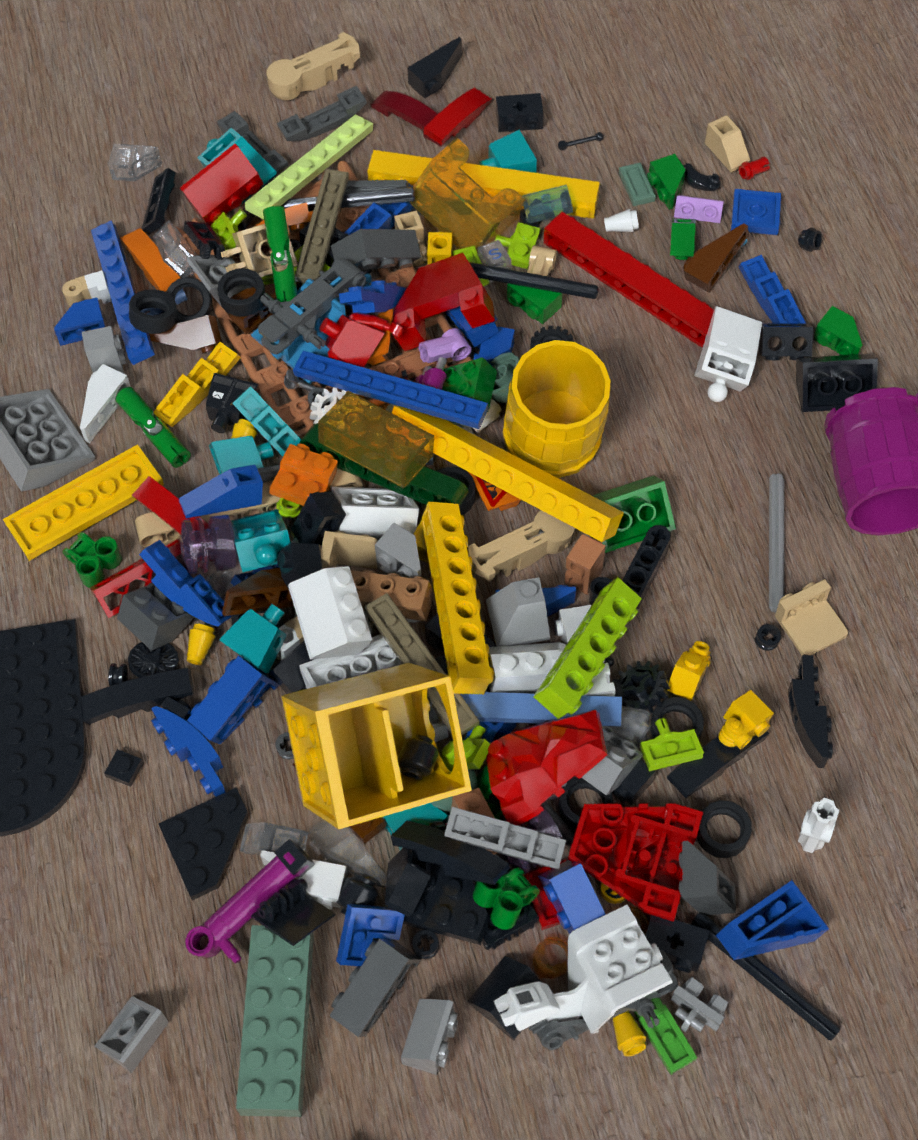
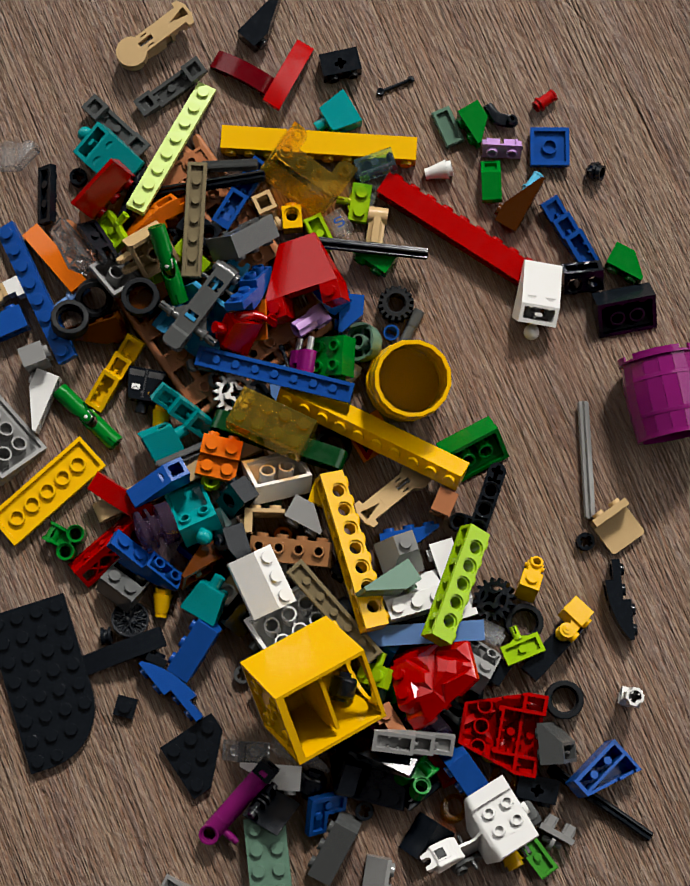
camera: 10 degrees left, 20 degrees up
(503, 629) = (393, 582): none -> sand green slope
(727, 143) = (521, 81): tan slope -> none

